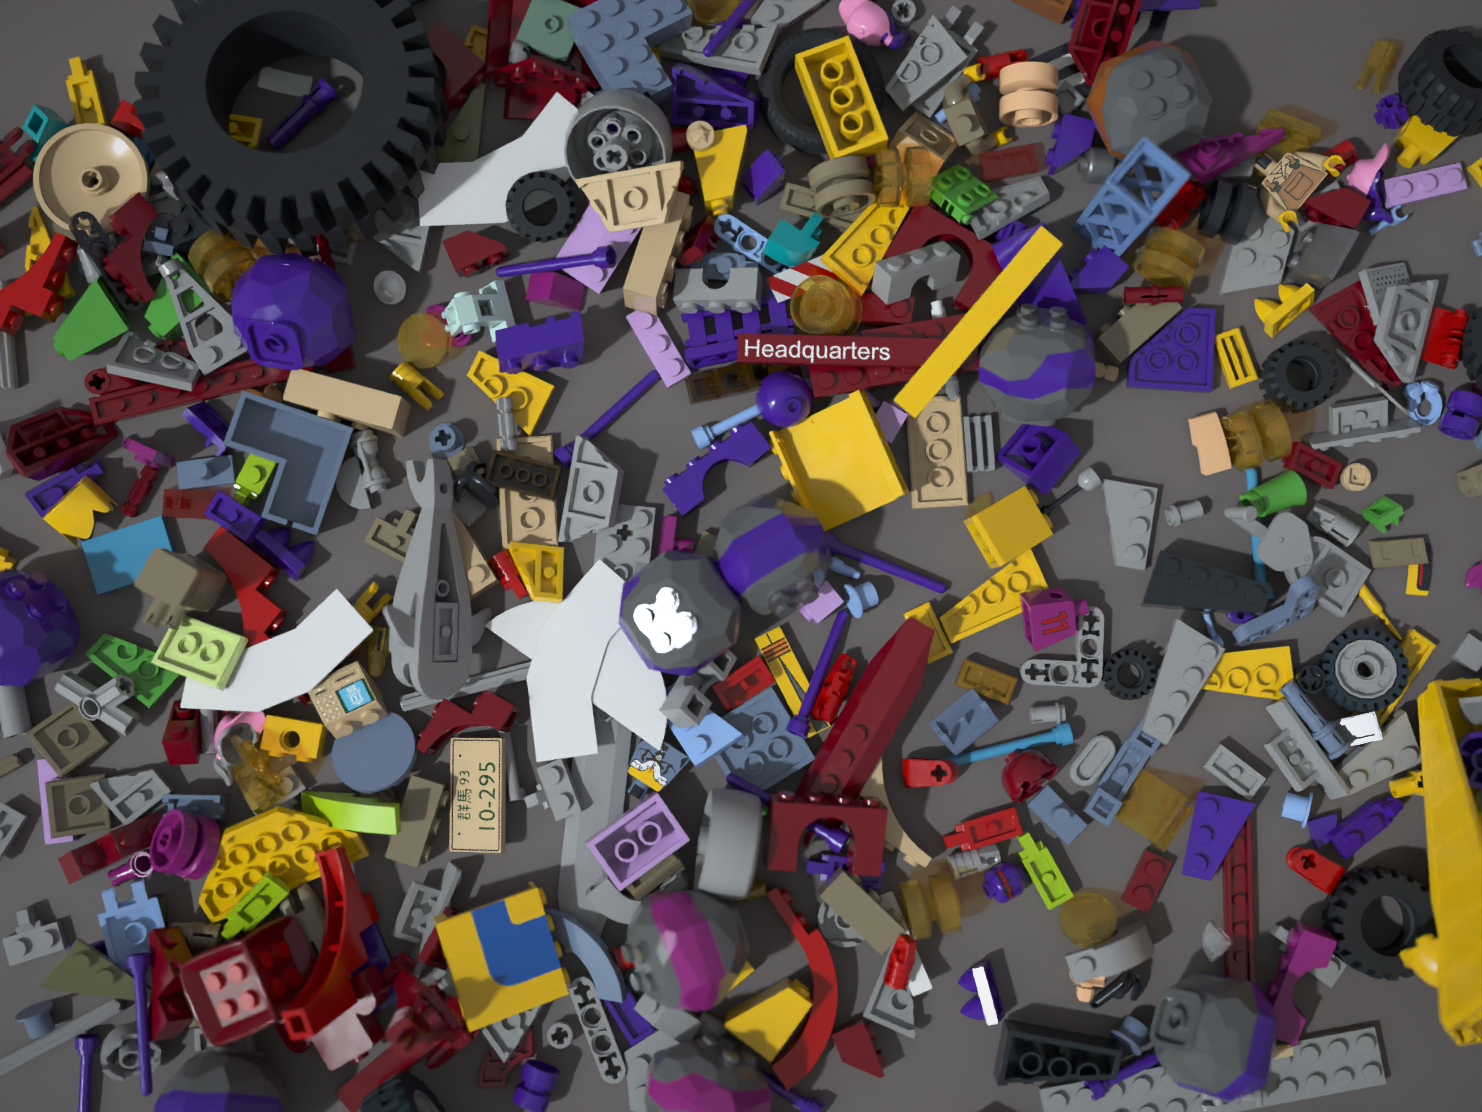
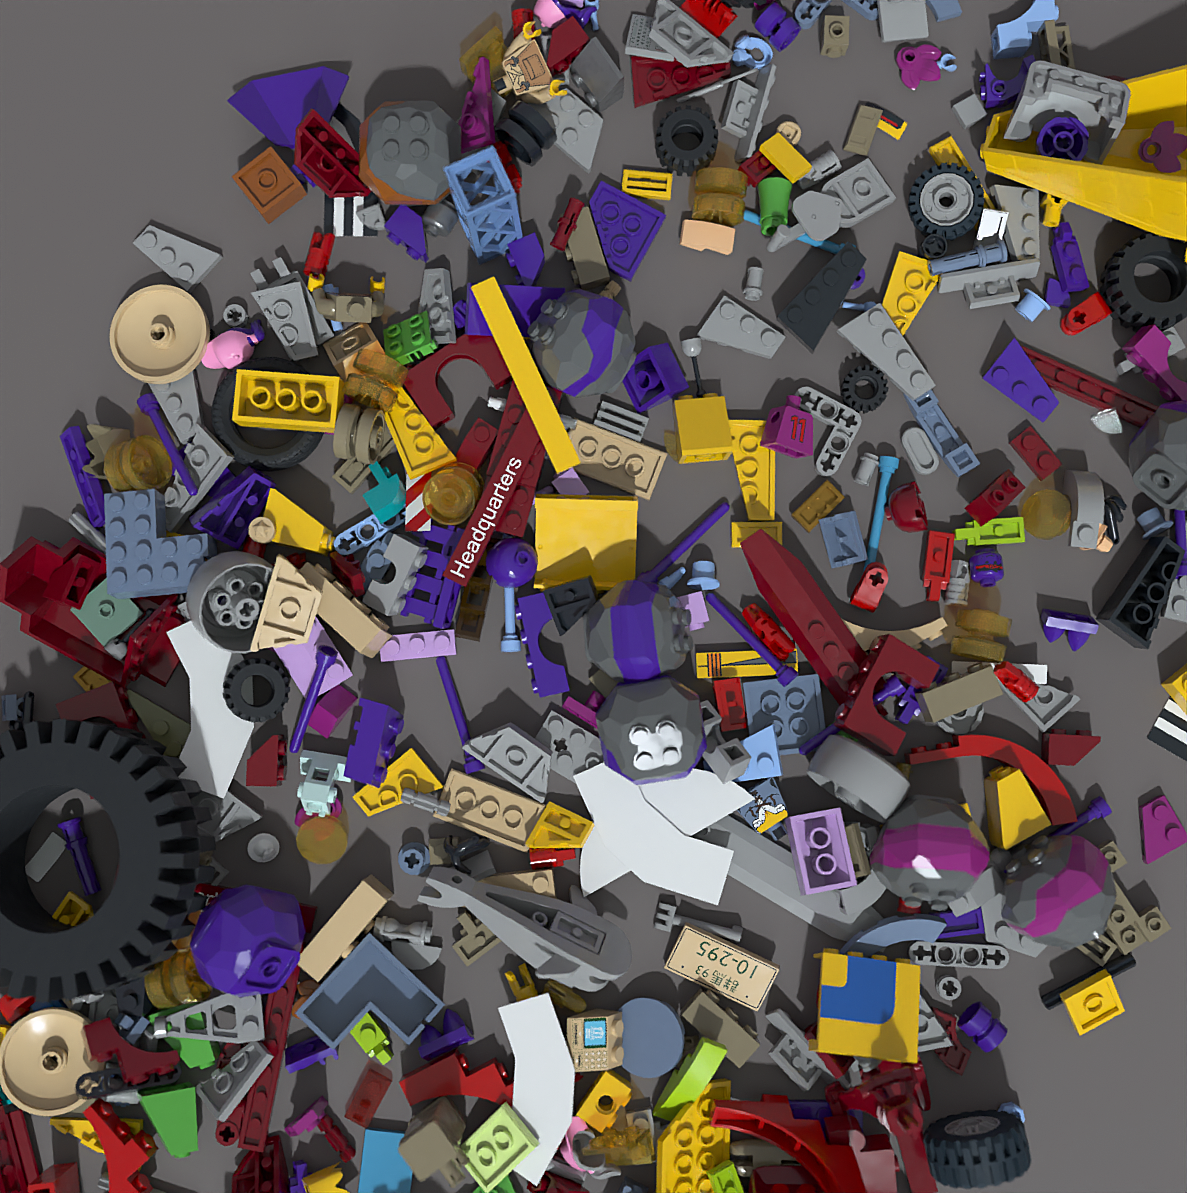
camera: 60 degrees left, 0 degrees up
(206, 472) = (347, 1074): sand blue tile -> none
(234, 517) = (396, 1067): dark purple plate -> none
(412, 383) = (352, 865): yellow hinge -> none
(452, 718) = (647, 959): dark red arch -> none
(472, 685) = (629, 927): light grey axle -> none
(524, 475) = (475, 807): dark brown piece -> none
(556, 791) = (748, 899): light grey hinge -> none
(764, 177) = (319, 493): dark purple slope -> none
(771, 474) = (570, 601): none -> black wing
(896, 275) = (454, 423): light grey arch -> none
(1008, 163) = (402, 289): clear red plate -> none
(1028, 94) = (354, 246): light nougat wheel -> none
(1056, 814) = (949, 499): sand blue tile -> none
(1079, 857) = (995, 497): none -> dark red brick
(1154, 810) = (981, 420): clear yellow bracket -> none
(1169, 257) = (543, 197): clear yellow wheel -> none
(1233, 772) = (980, 343): light grey plate -> none
(1277, 316) = (629, 135): yellow tile -> none
(1297, 606) = (870, 228): sand blue beam -> none
(1329, 484) = (785, 158): none -> yellow tile
(1376, 608) = (901, 168): yellow piece -> none
(1383, 513) = (827, 126): bright green tile -> none

